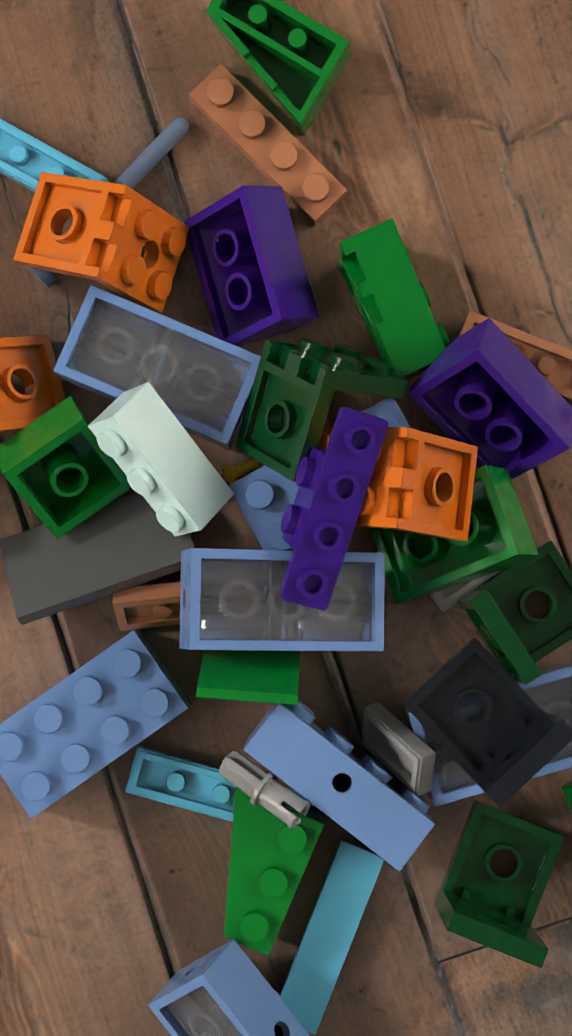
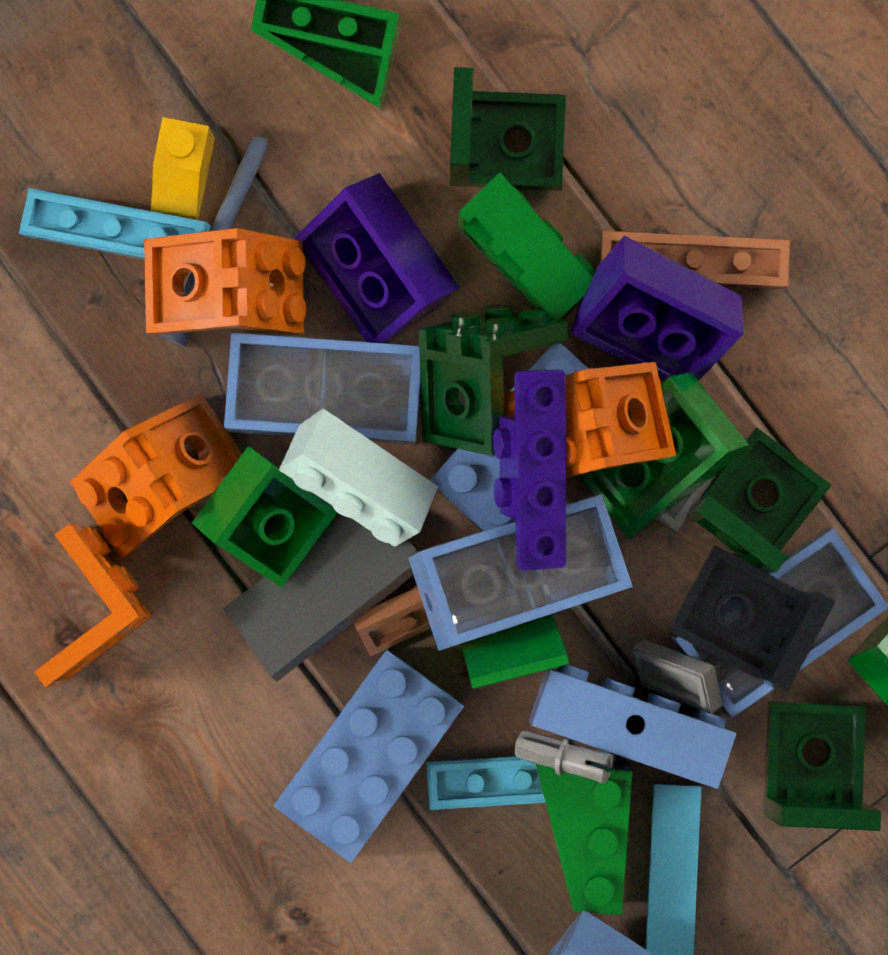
camera: 15 degrees left, 0 degrees up
(101, 120) = (181, 168): none -> yellow slope
(231, 474) = (426, 467): yellow hand -> none
(267, 144) = (350, 134): nougat plate -> none
(392, 172) = (481, 124): none -> dark green bracket

